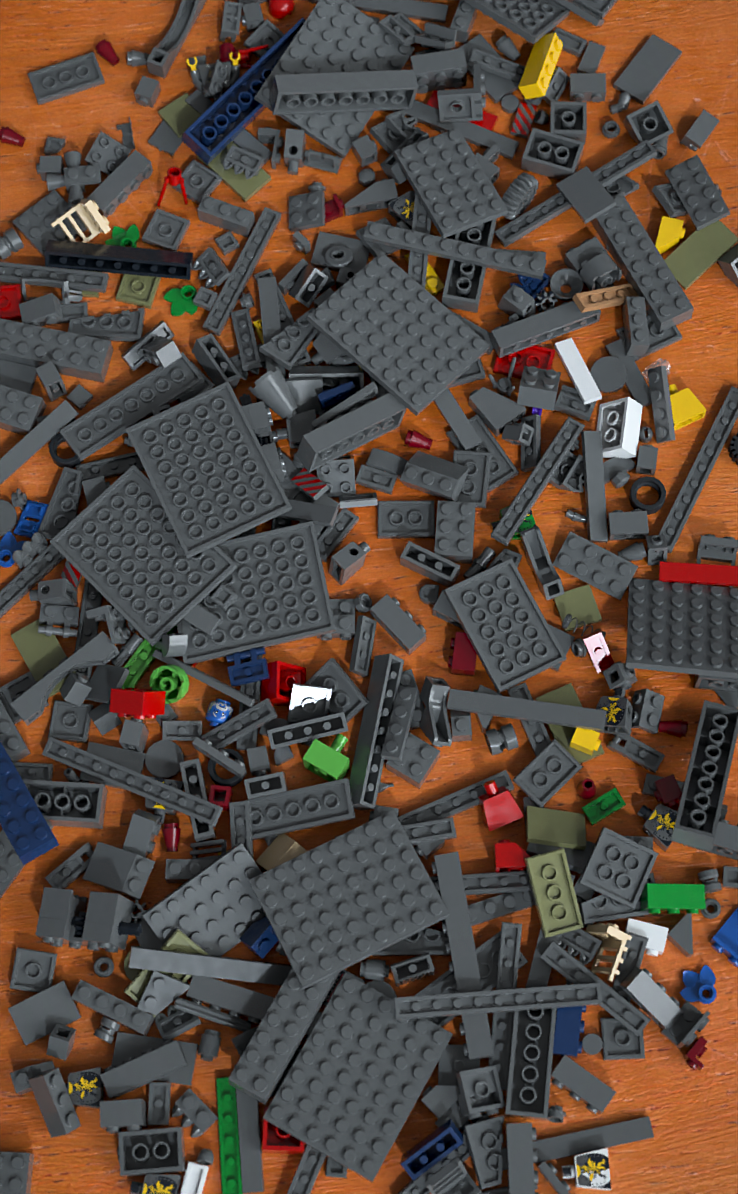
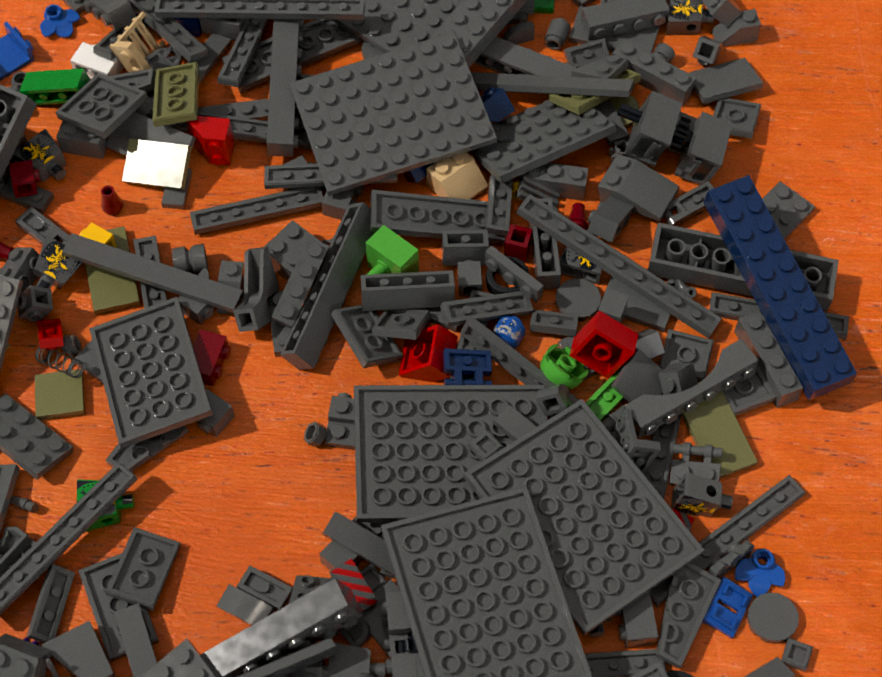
camera: 175 degrees left, 10 degrees down
(19, 499) = (744, 634): dark grey plate -> none
(212, 1015) = (555, 52): dark grey axle -> none
(336, 534) = (313, 539): dark grey plate -> none
(348, 561) = (321, 481): dark grey torso -> none
(358, 500) = (294, 562): dark grey tile -> none
(362, 645) = (325, 385): dark grey plate -> none
(398, 623) = (277, 403): dark grey brick -> none
(406, 519) = (238, 534): dark grey tile -> none
(412, 969) = (338, 57): dark grey brick -> none
(417, 440) = (200, 634): dark red cone -> none
(429, 564) = (222, 461): dark grey brick -> none
(429, 594) = (231, 437): dark grey tile -> none
(434, 476) = (187, 573): dark grey slope -> none
(455, 531) = (180, 500): dark grey brick -> none
(480, 563) = (152, 466): dark grey pin -> none
(498, 806) = (211, 191): red torso -> none
(518, 434) = (63, 612): dark grey brick -> none
(540, 563) = (85, 442): dark grey arch -> none
(547, 773) = (149, 219): dark grey tile -> none
(603, 806) = (90, 186): green plate -> none
(682, 935) = (58, 57): dark grey slope -> none

